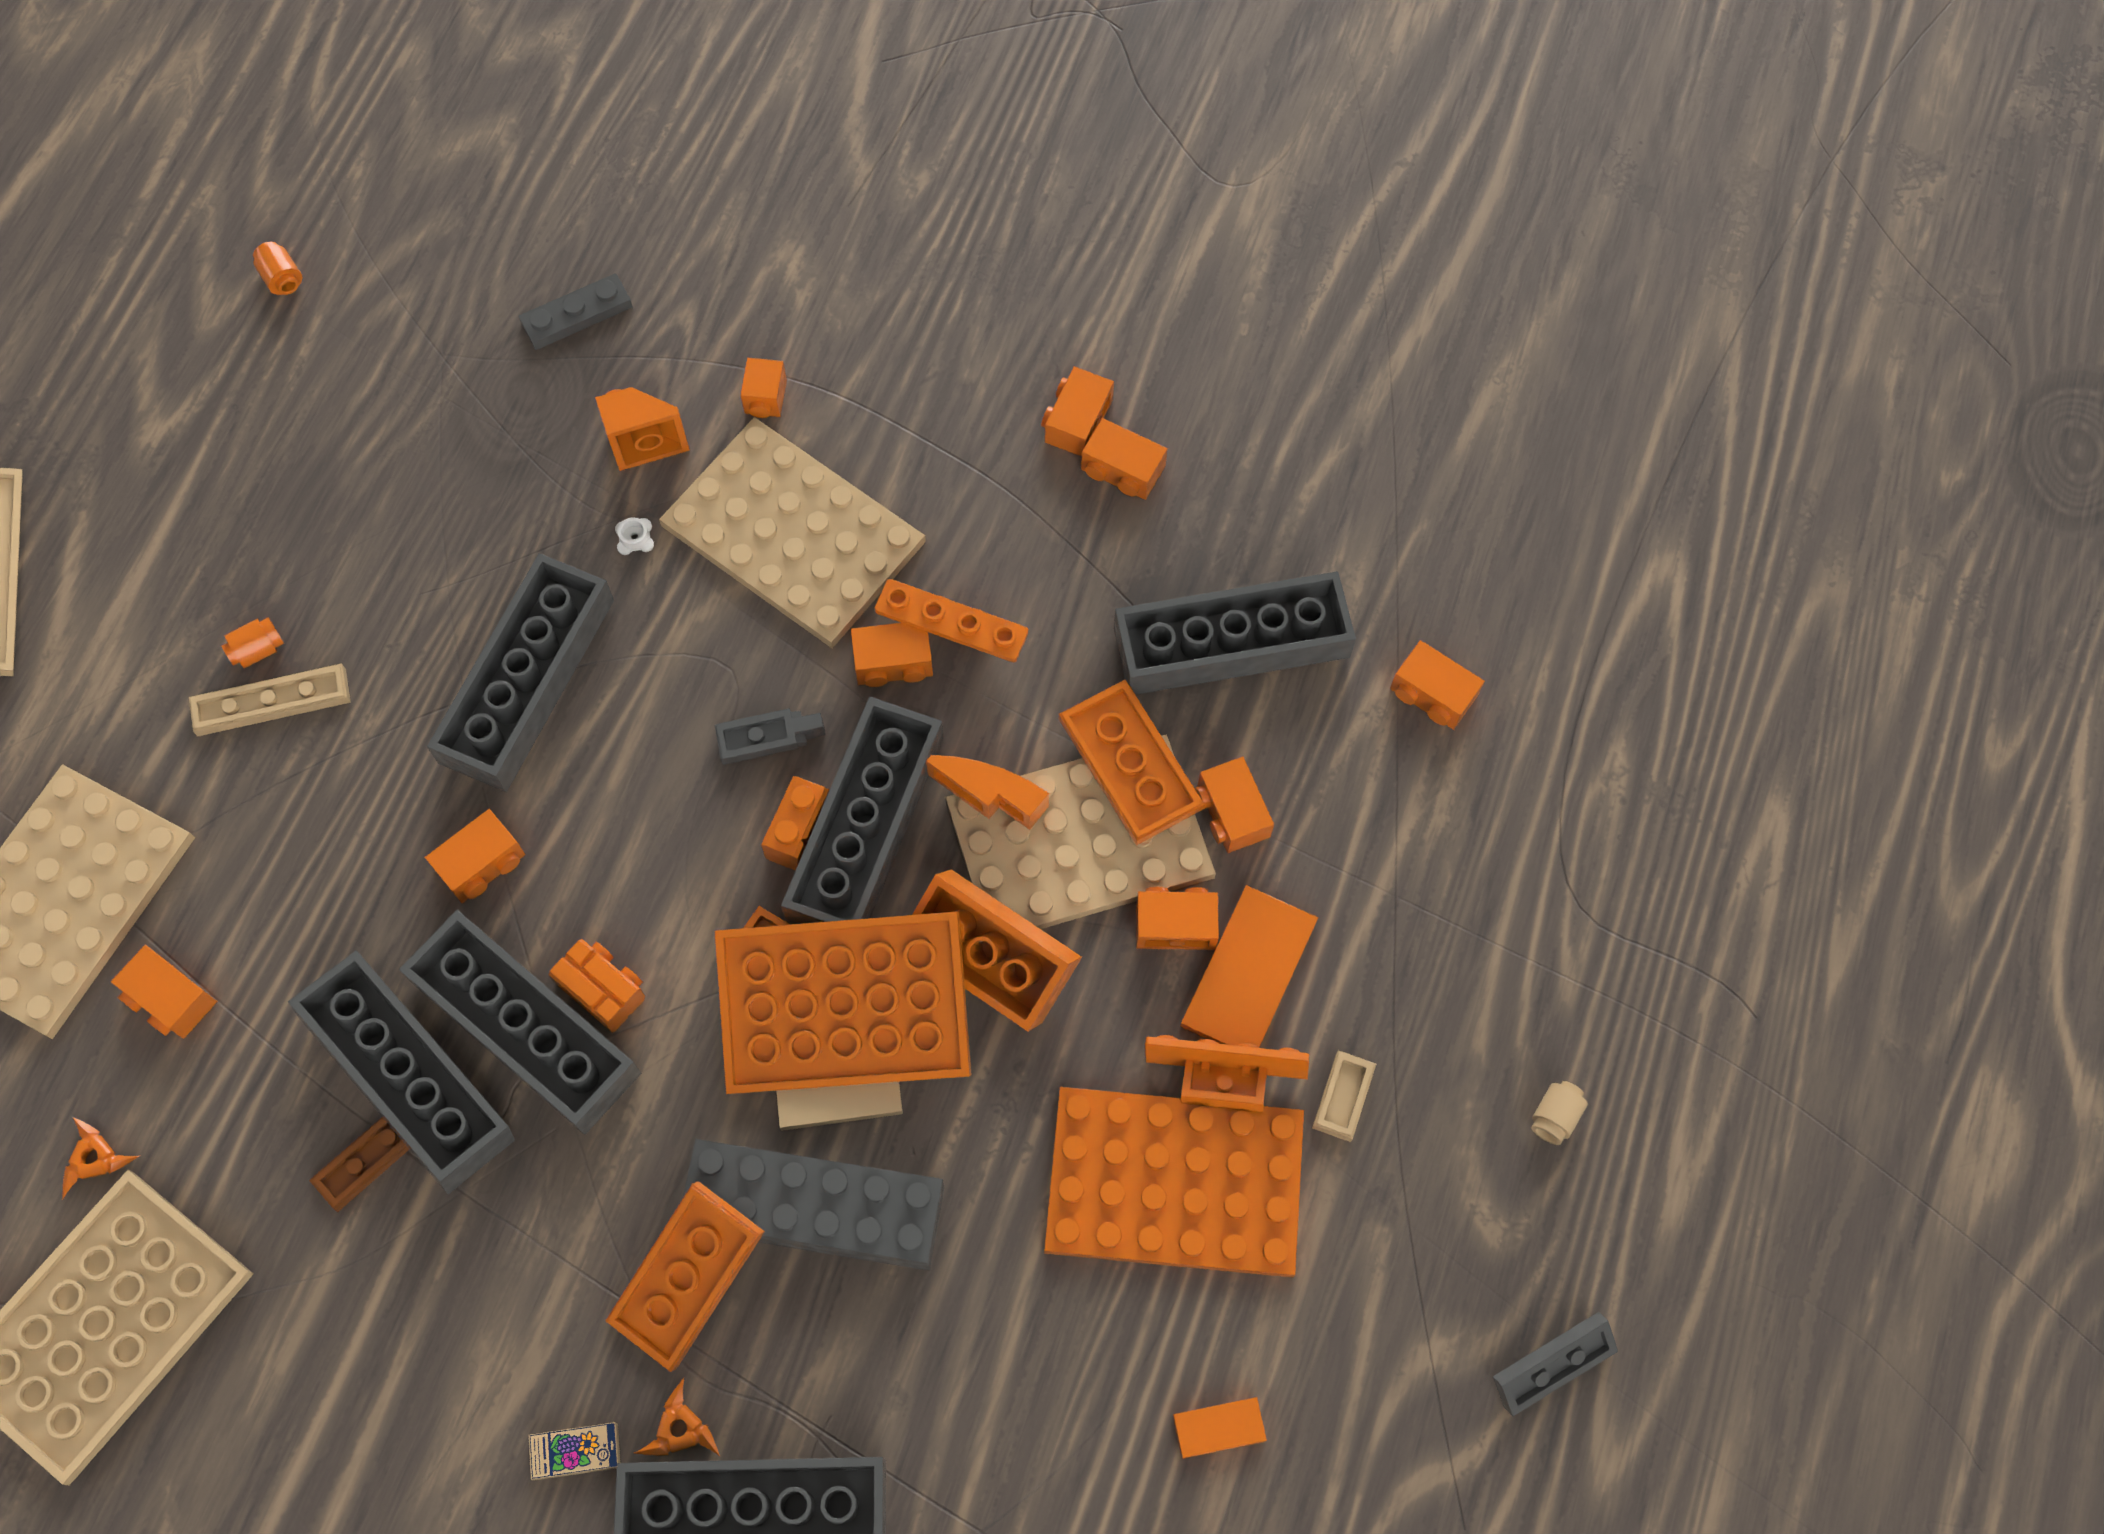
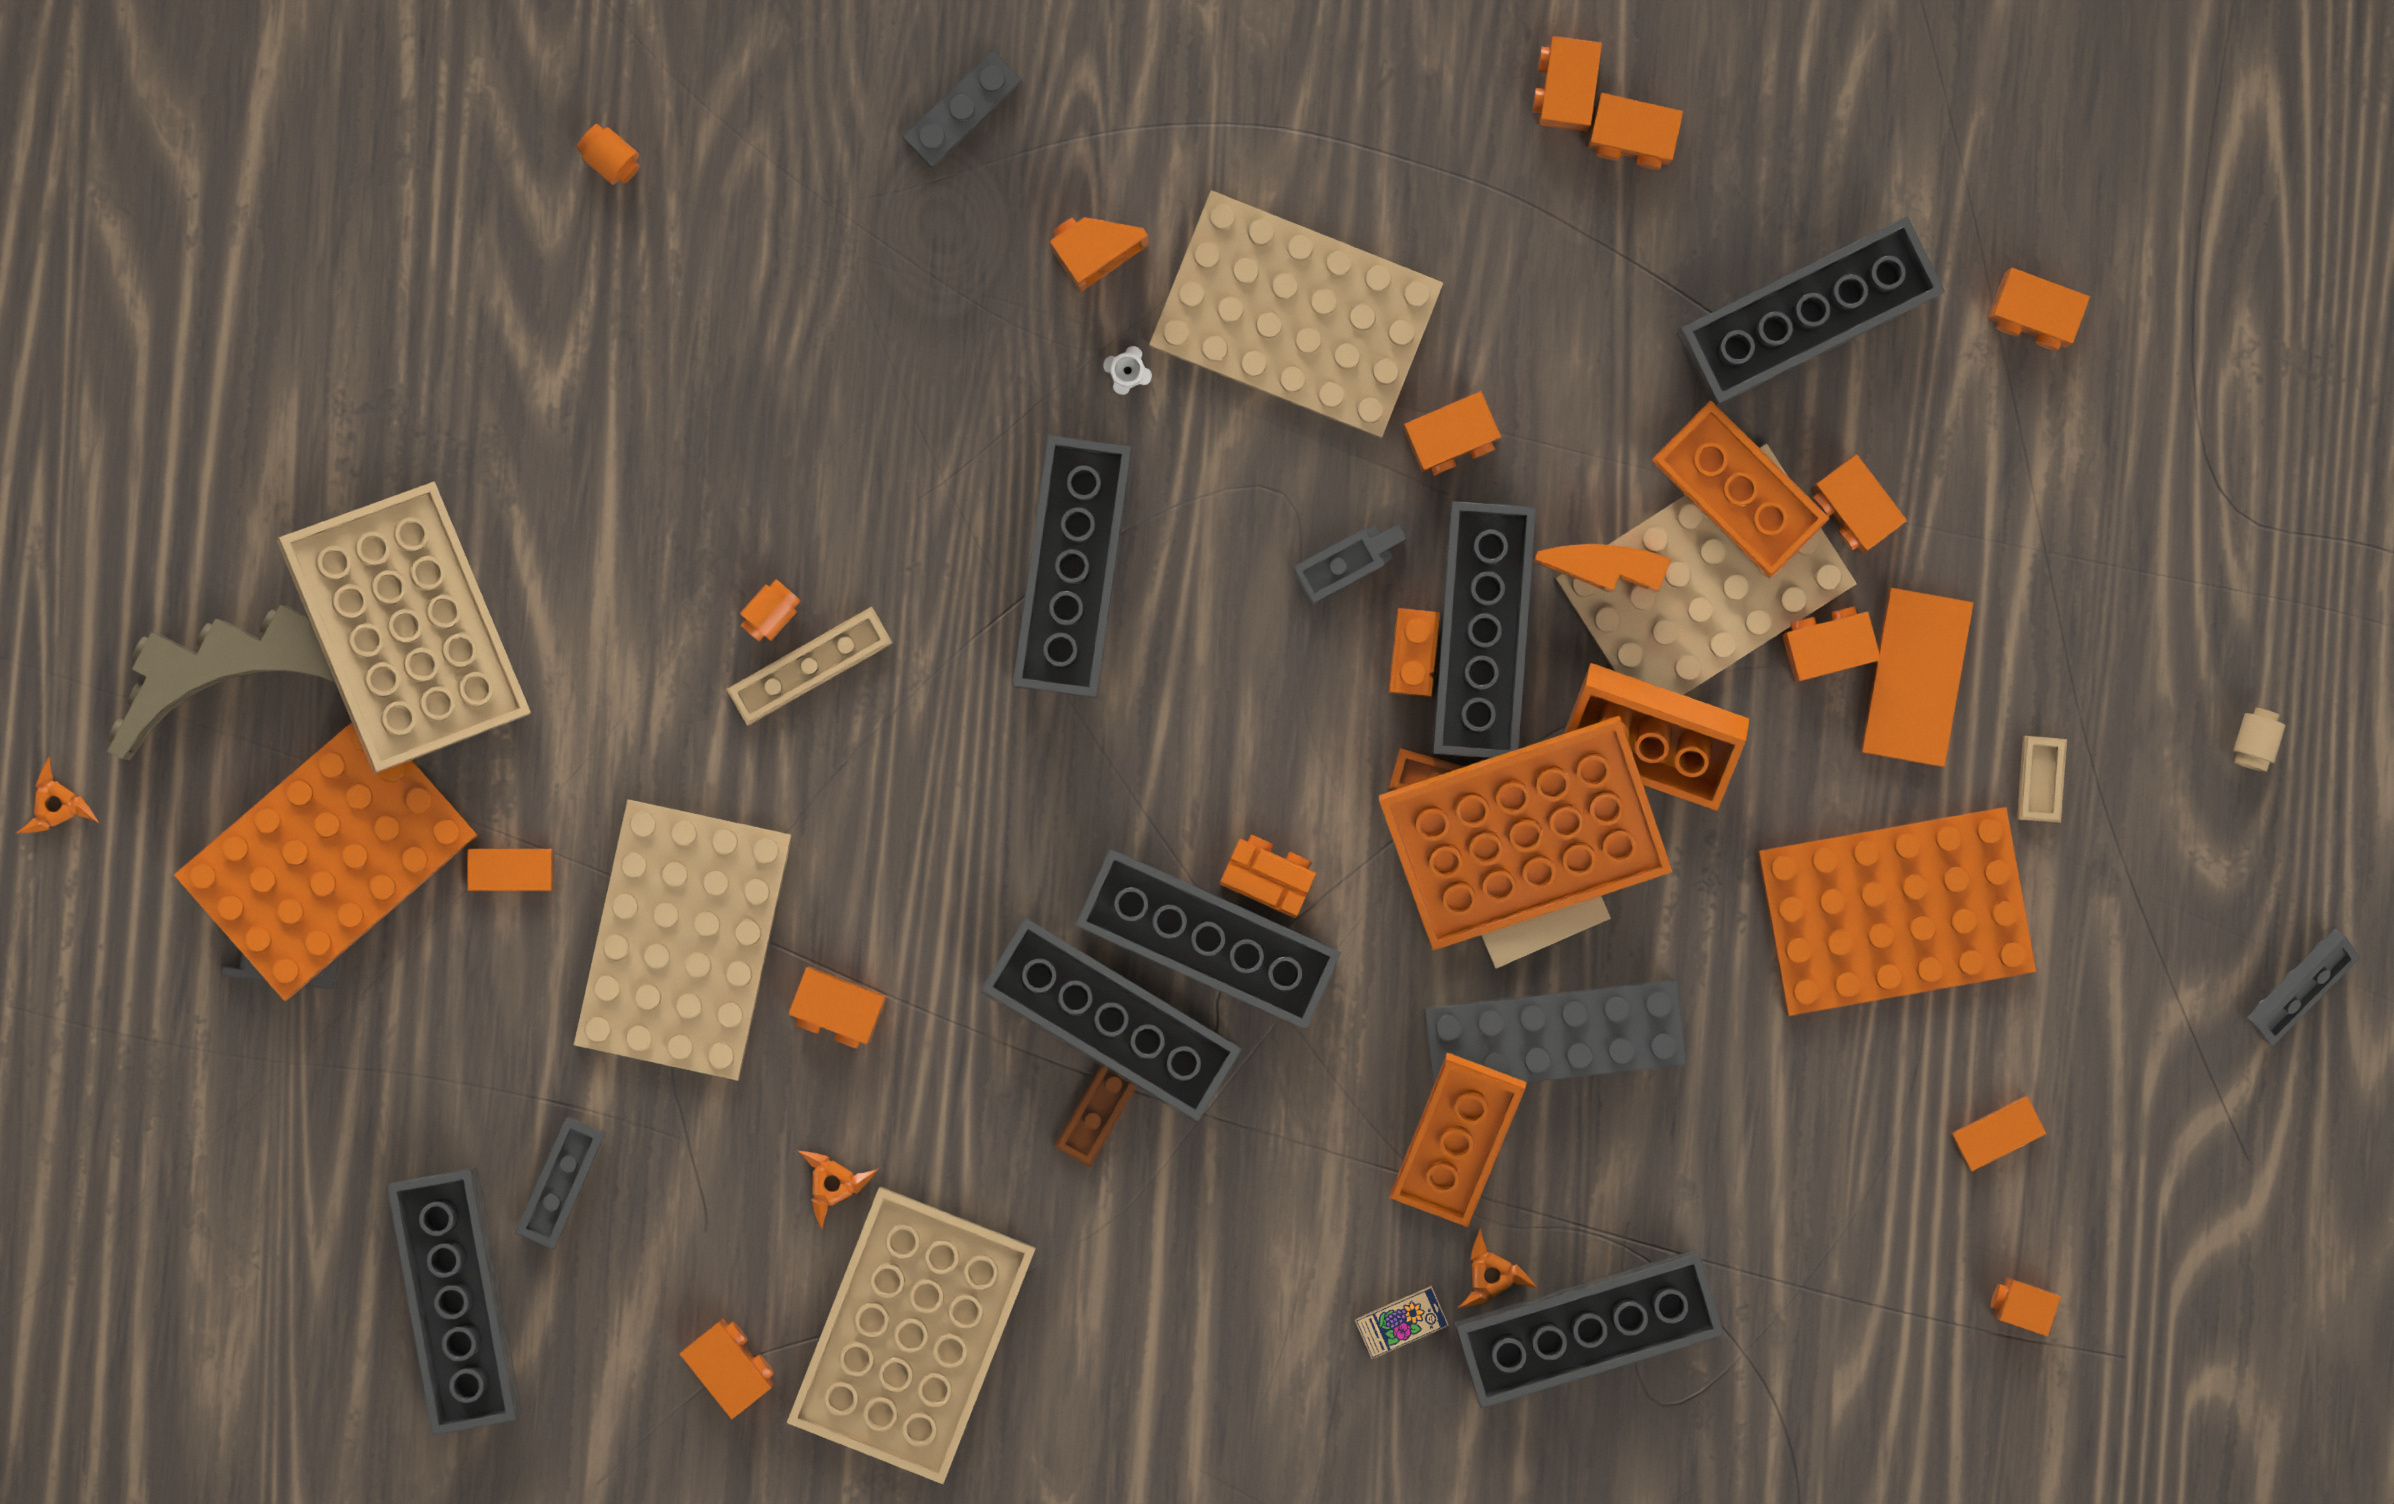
camera: 15 degrees left, 20 degrees up
(476, 856) = (1096, 779): orange brick -> none
(763, 387) = (1211, 153): orange brick -> none
(951, 620) = (1509, 385): orange bracket -> none
(1225, 1073) = (1920, 796): orange bracket -> none

